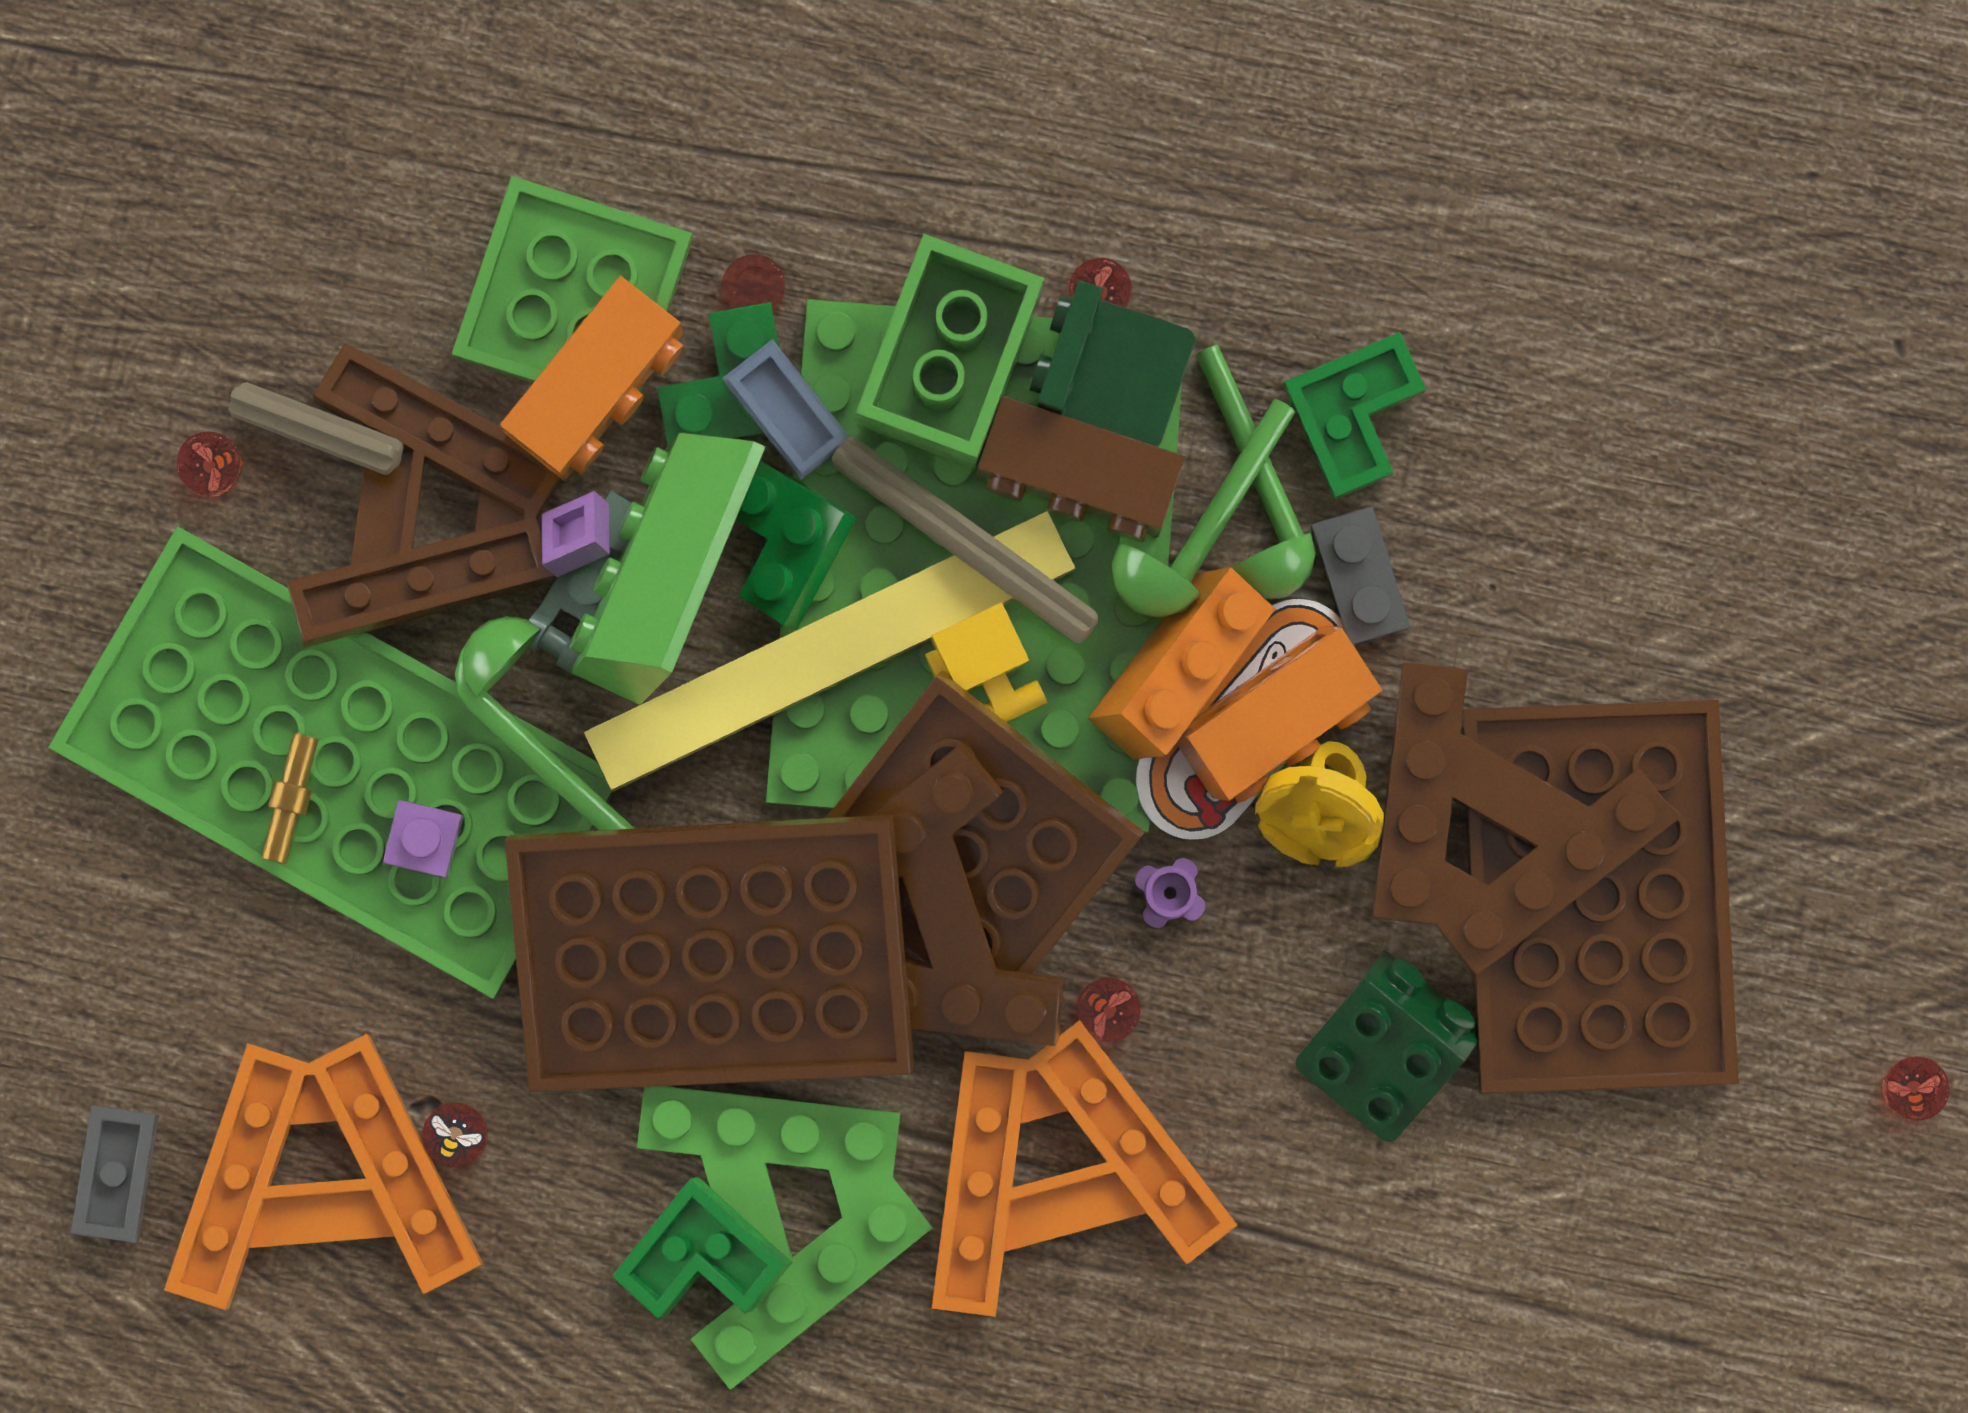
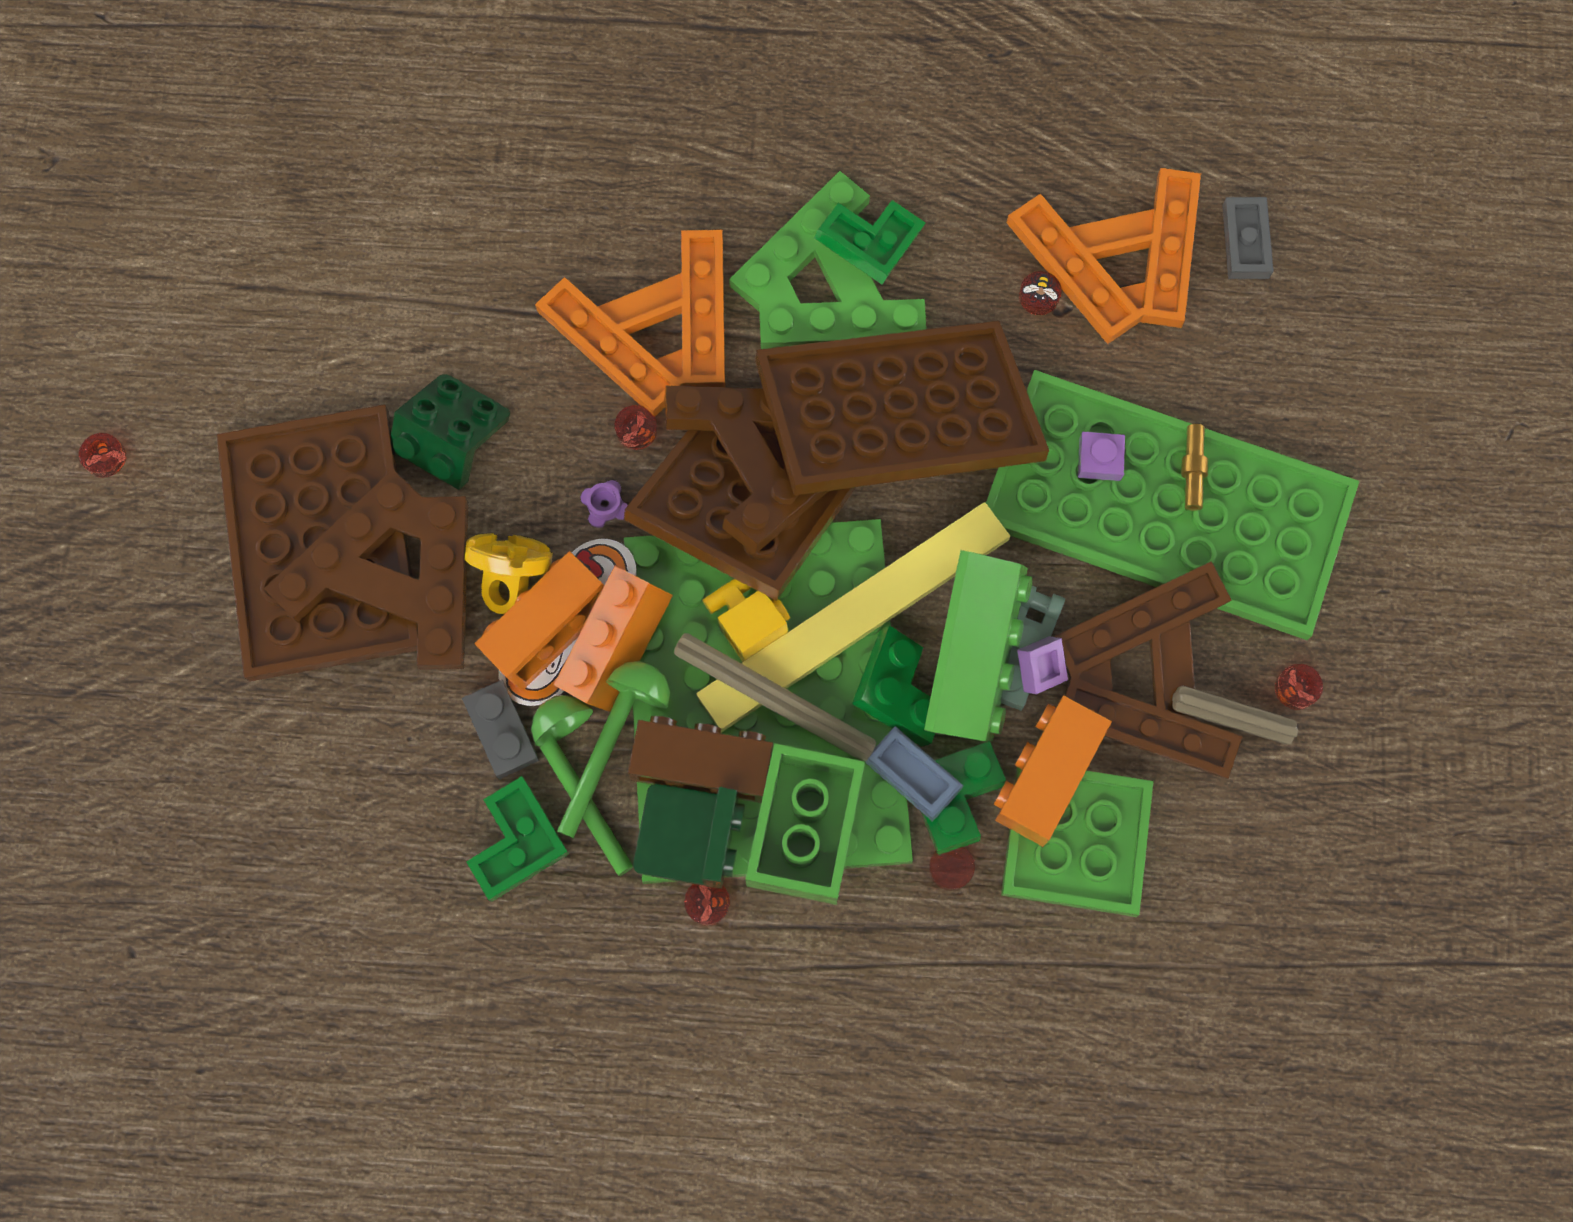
camera: 175 degrees right, 10 degrees down
(480, 666) = (1087, 567): bright green piece -> none

